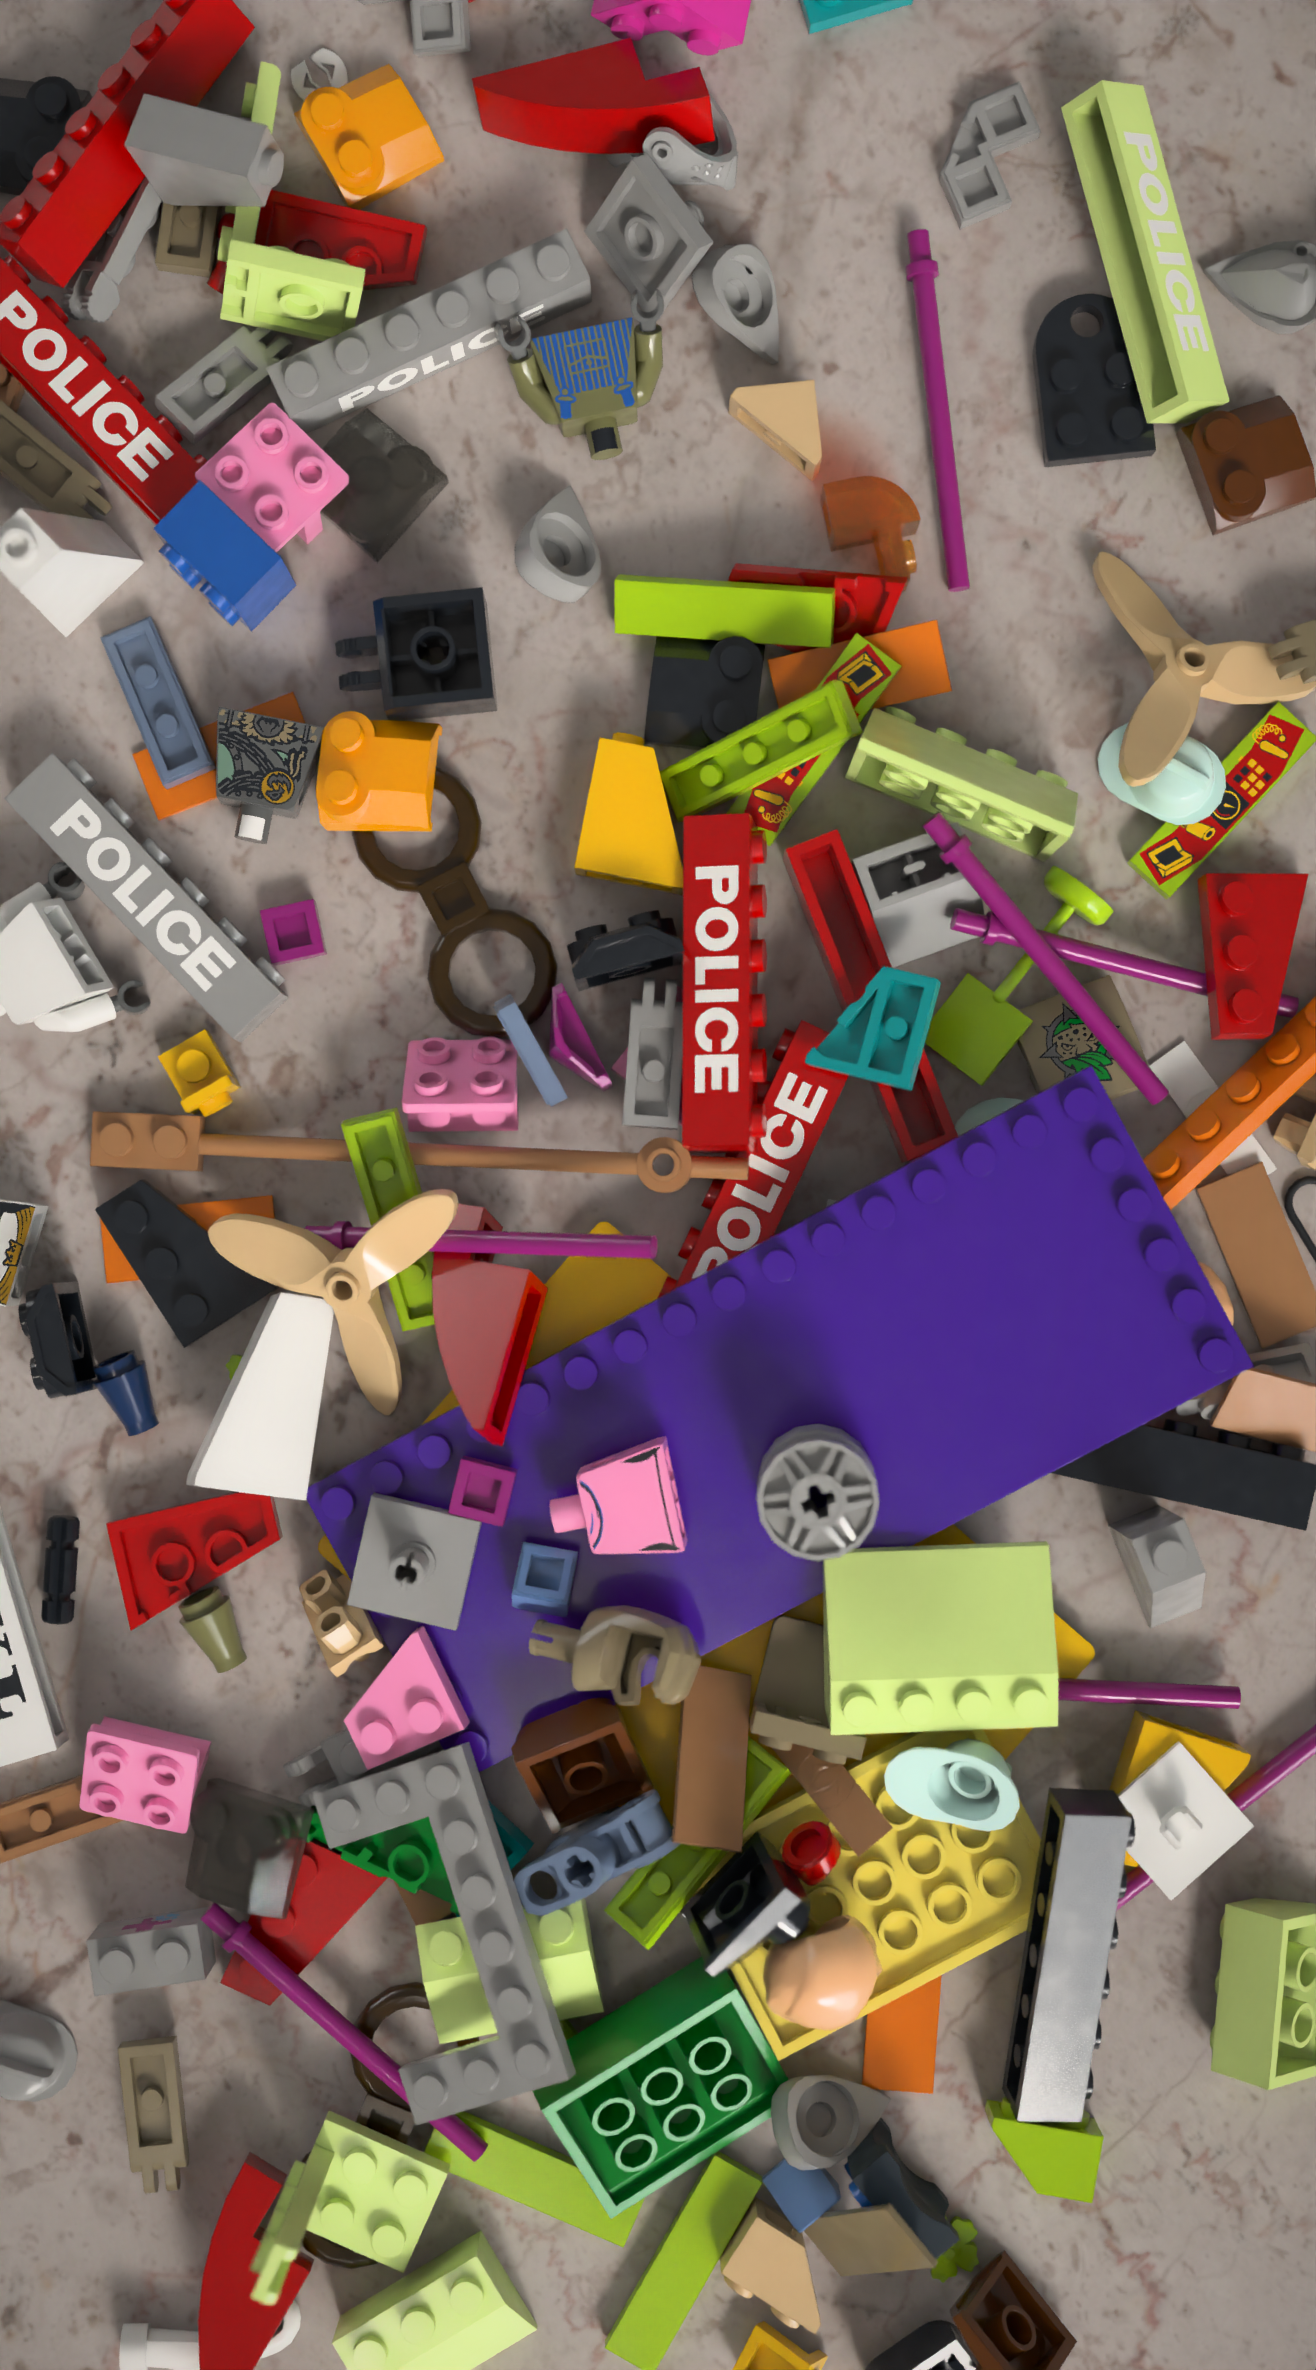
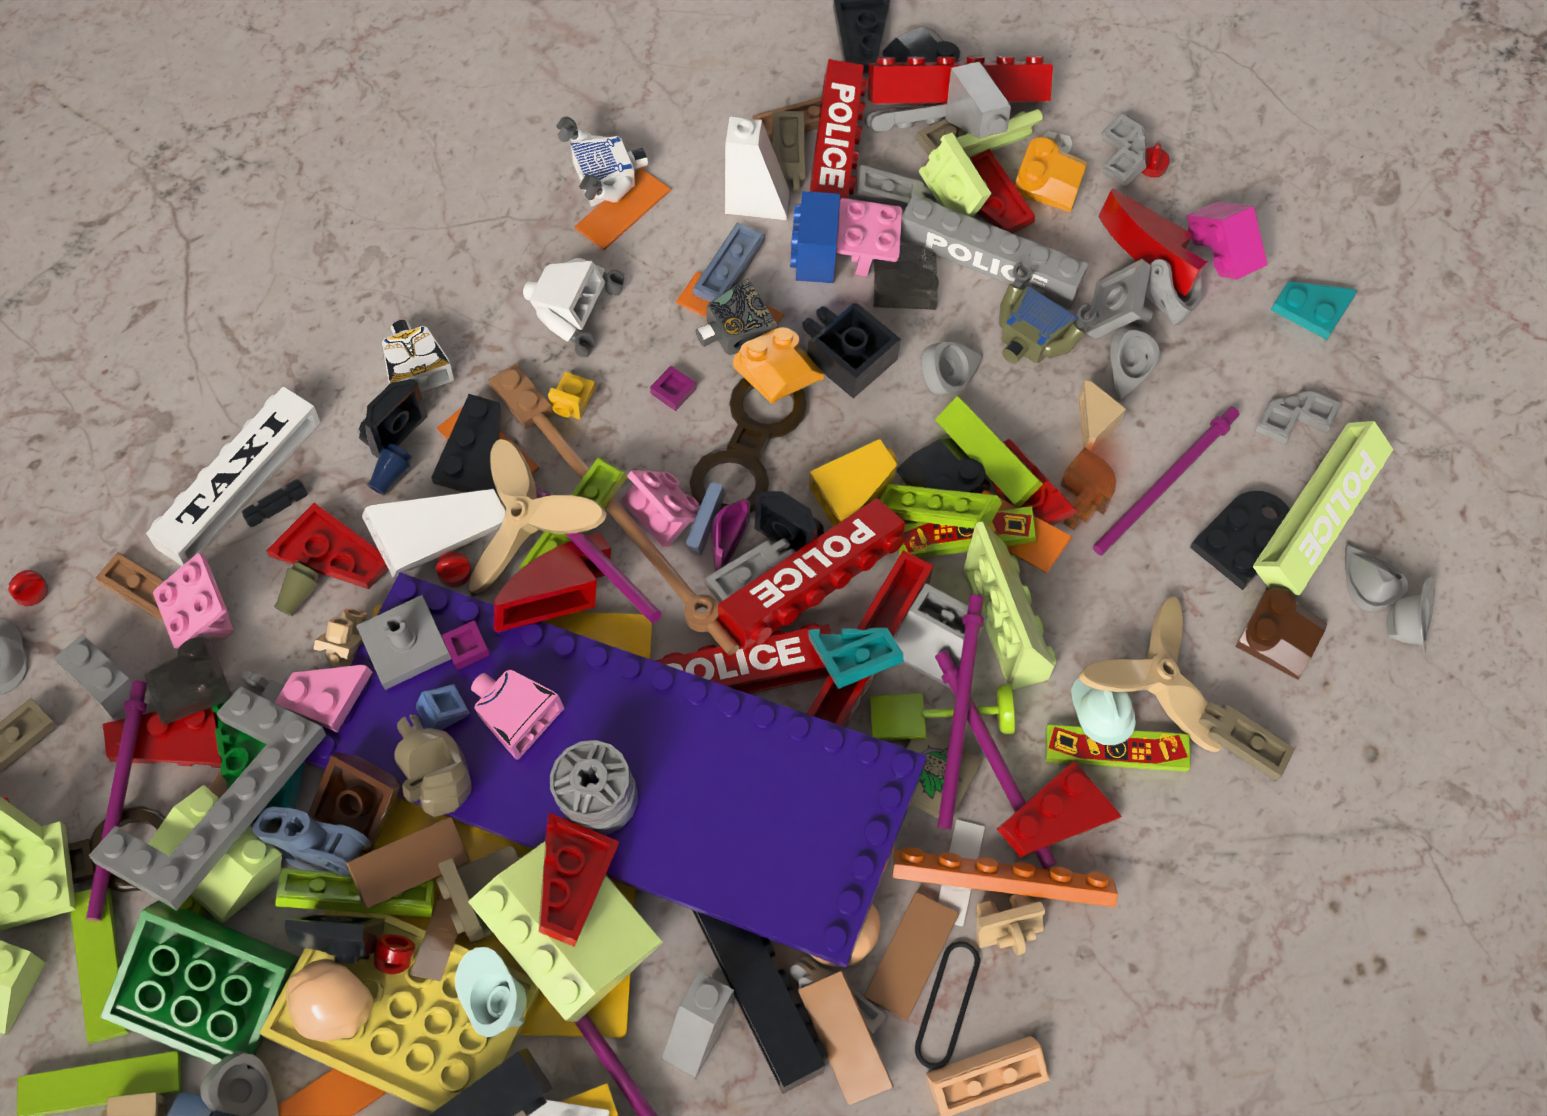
camera: 50 degrees right, 25 degrees down
(146, 897) = (635, 319): light grey brick -> none
(341, 1413) = (453, 569): none -> red tile
(905, 1600) = (572, 876): none -> red wing

